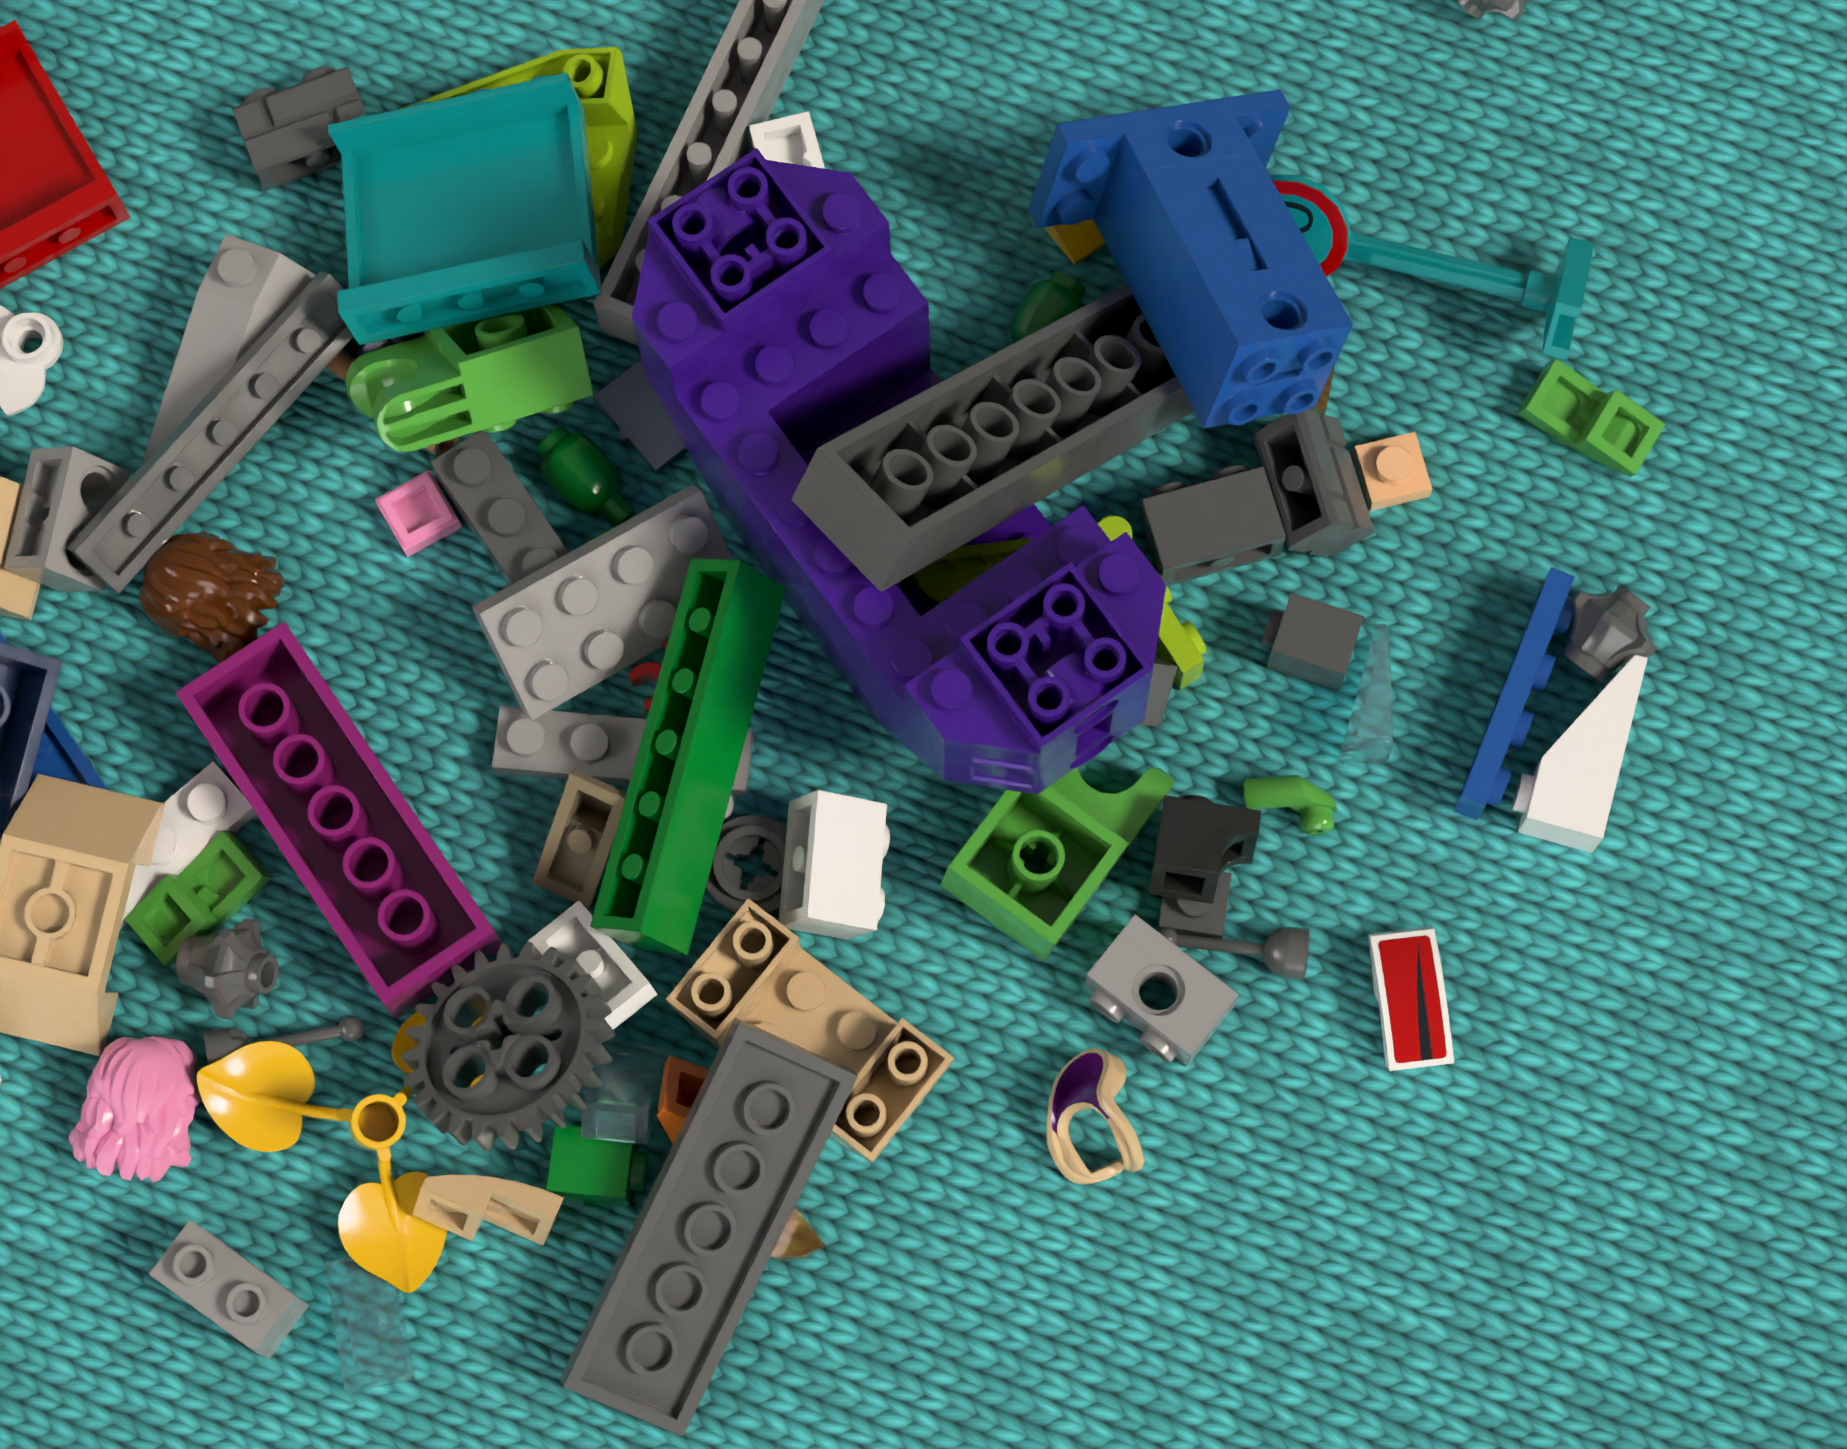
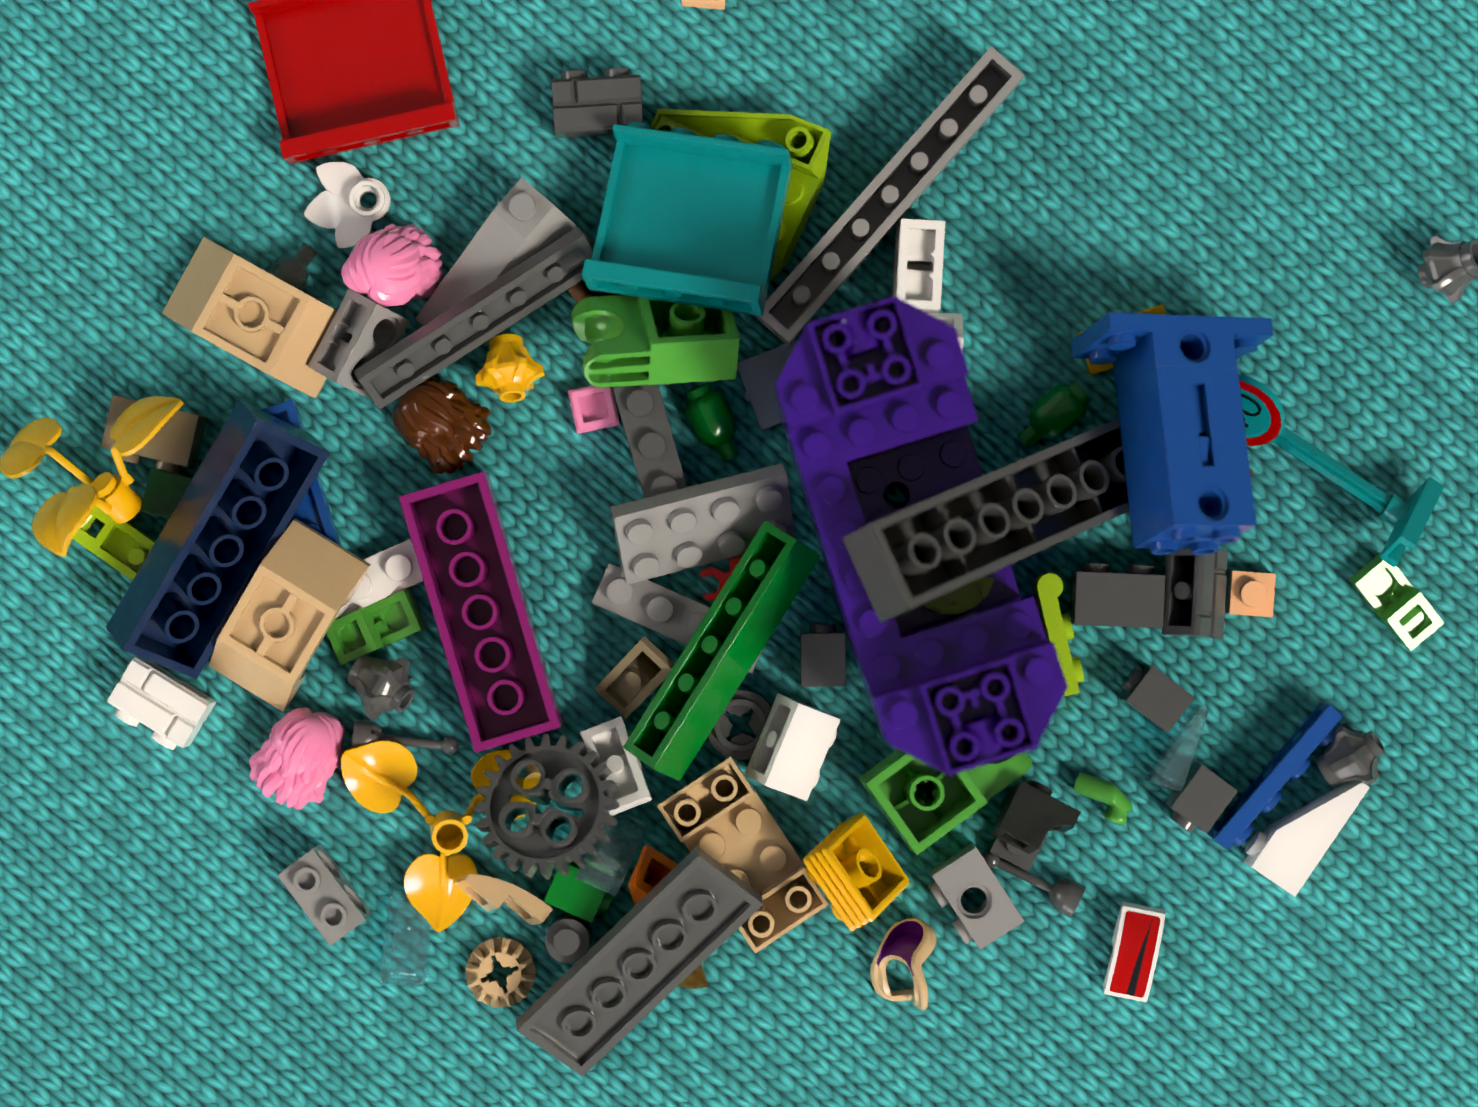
camera: 15 degrees right, 15 degrees up
(88, 404) = (394, 266): none -> bright pink hair
(284, 492) = (509, 368): none -> yellow rock
(550, 1329) = (510, 954): none -> tan gear
(596, 1234) = (568, 938): none -> dark grey brick
(836, 735) = (822, 656): none -> dark grey brick
(977, 1004) = (855, 871): none -> yellow brick
(1423, 757) = (1200, 800): none -> dark grey brick

